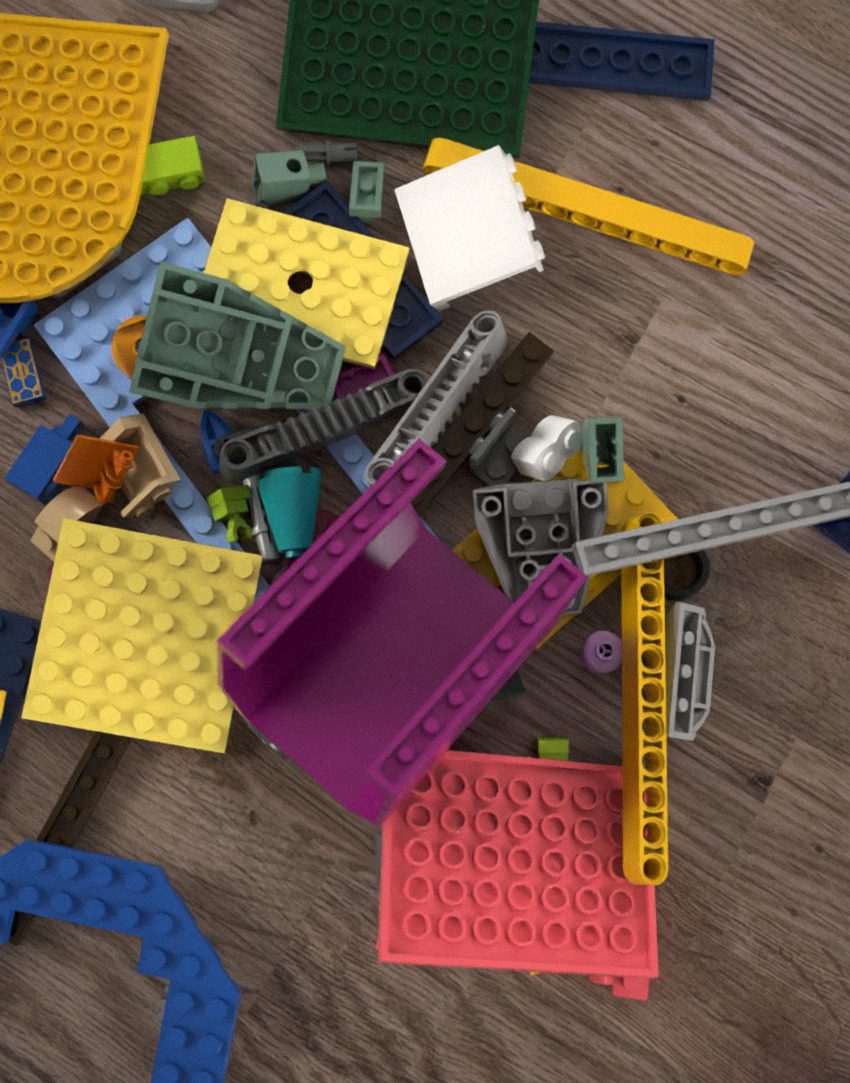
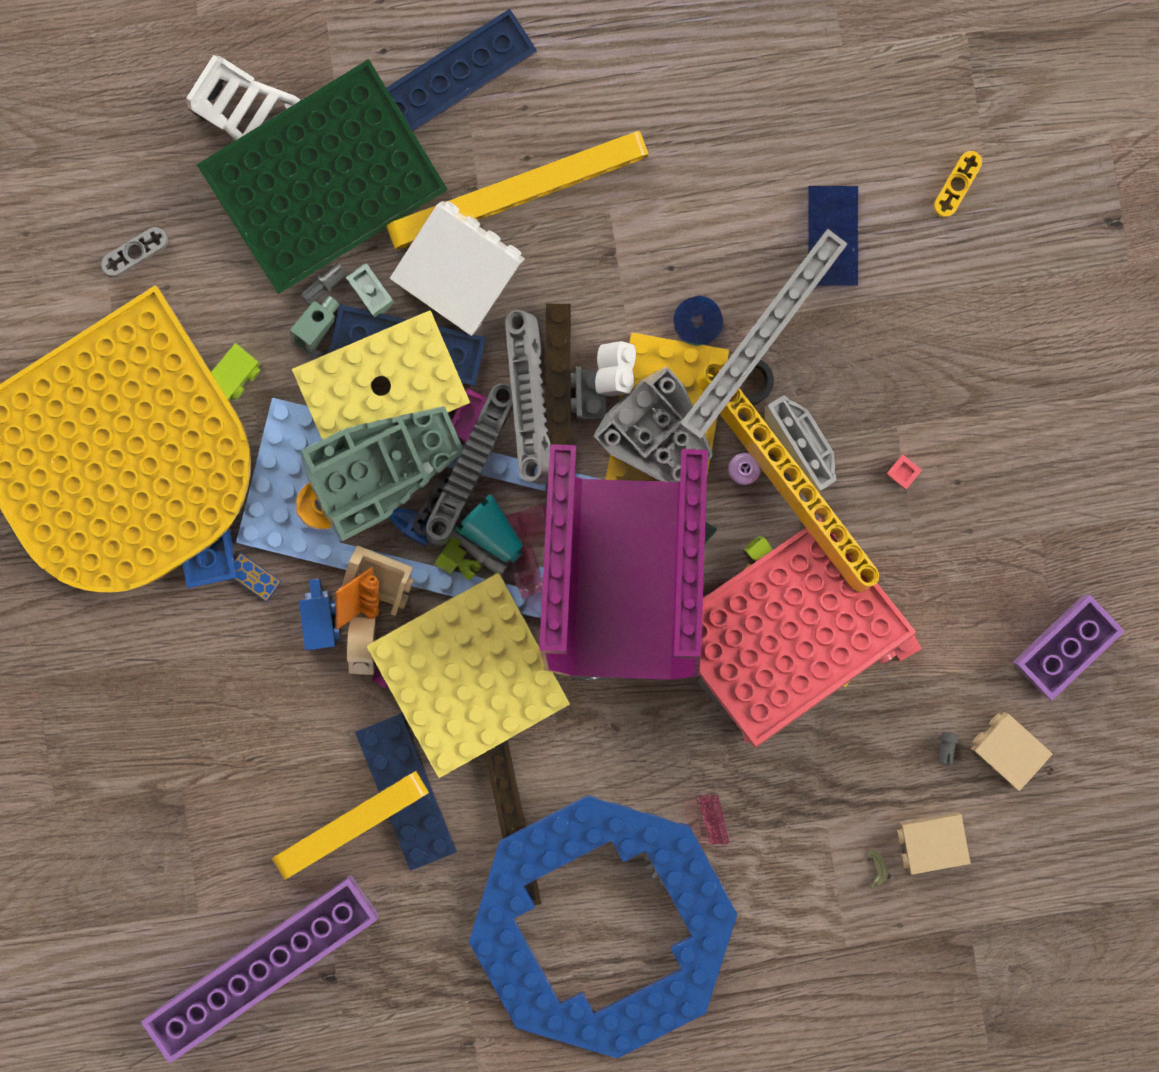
camera: 35 degrees left, 10 degrees up
(275, 1005) = (713, 818): none -> clear pink slope
(603, 445) = (647, 345): sand green torso -> none
(675, 452) = (711, 316): none -> clear blue plate
(770, 791) = (904, 472): none -> coral plate

